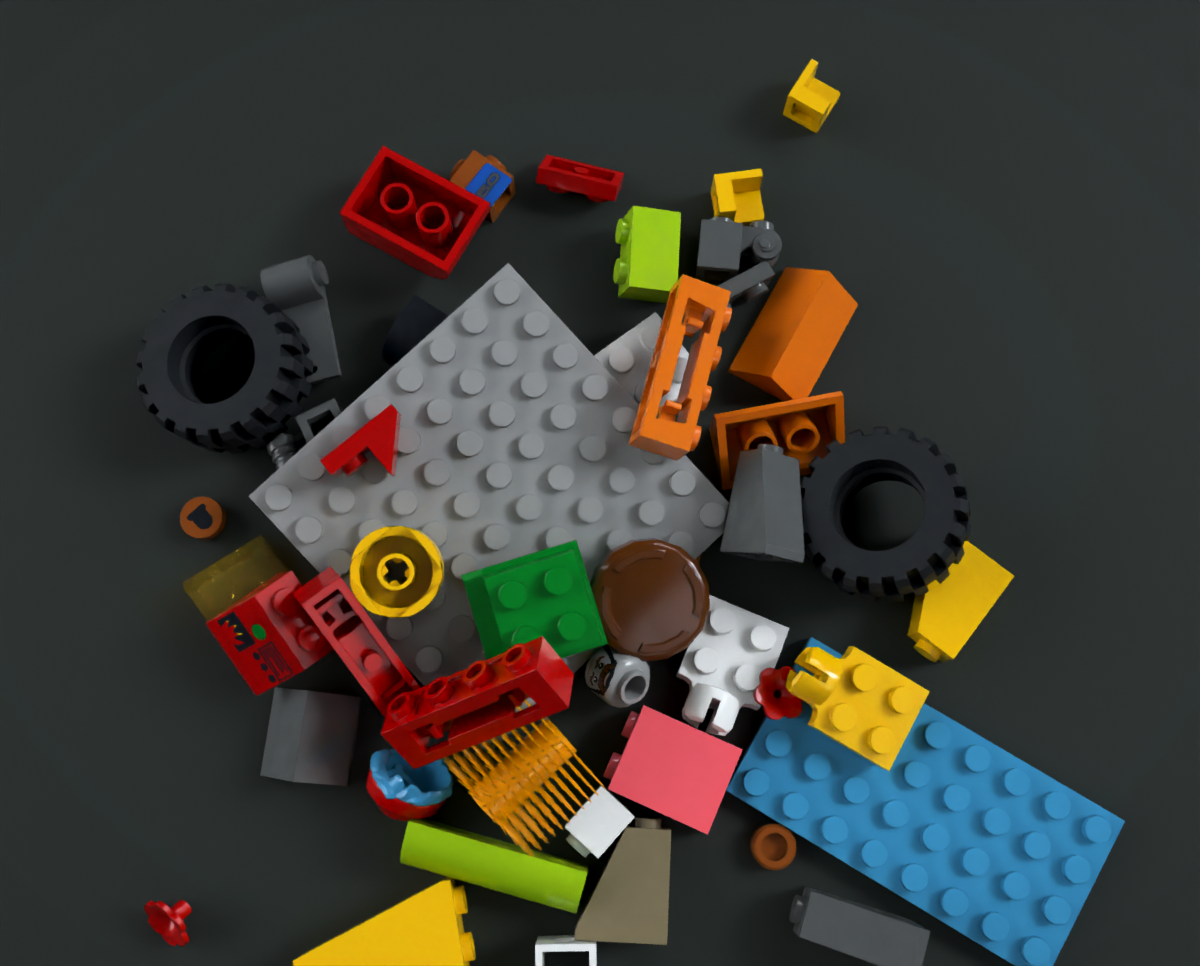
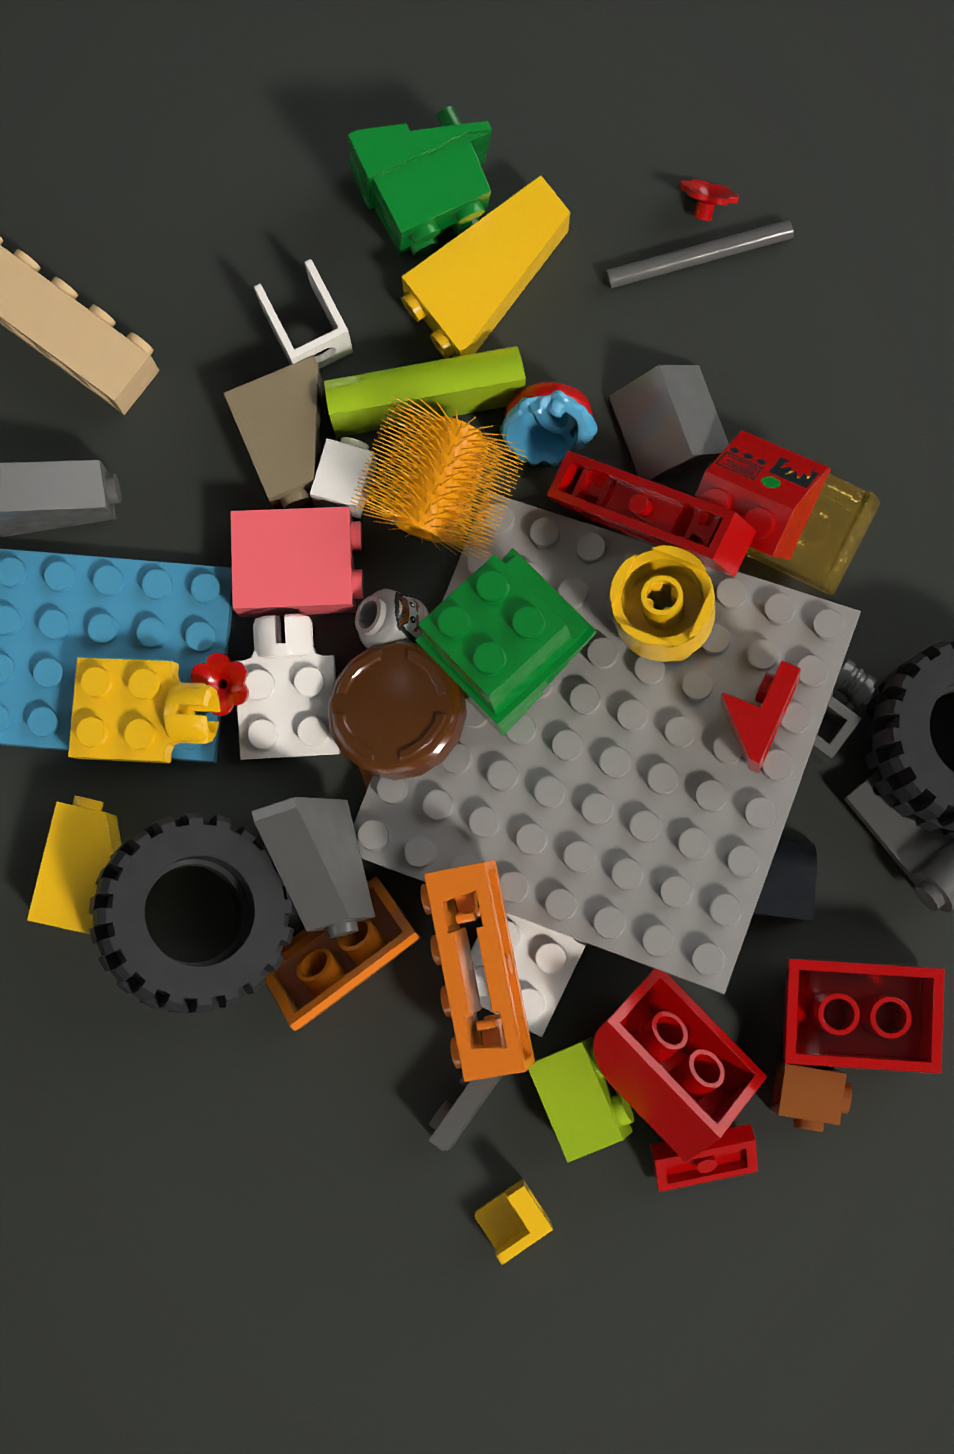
camera: 155 degrees right, 5 degrees up
(203, 518) = (901, 581): dark orange tile -> none
(206, 873) = (699, 254): none -> dark grey bar
(478, 702) = (509, 508): red brick -> none
(489, 183) = (799, 1089): blue sticker -> none
(568, 237) = (675, 1065): none -> red brick
(726, 242) = (503, 1156): dark grey brick -> none
(773, 846) = (163, 538): dark orange tile -> none
(795, 333) = (377, 1089): orange slope -> none
(810, 99) = (486, 1395): yellow panel -> none

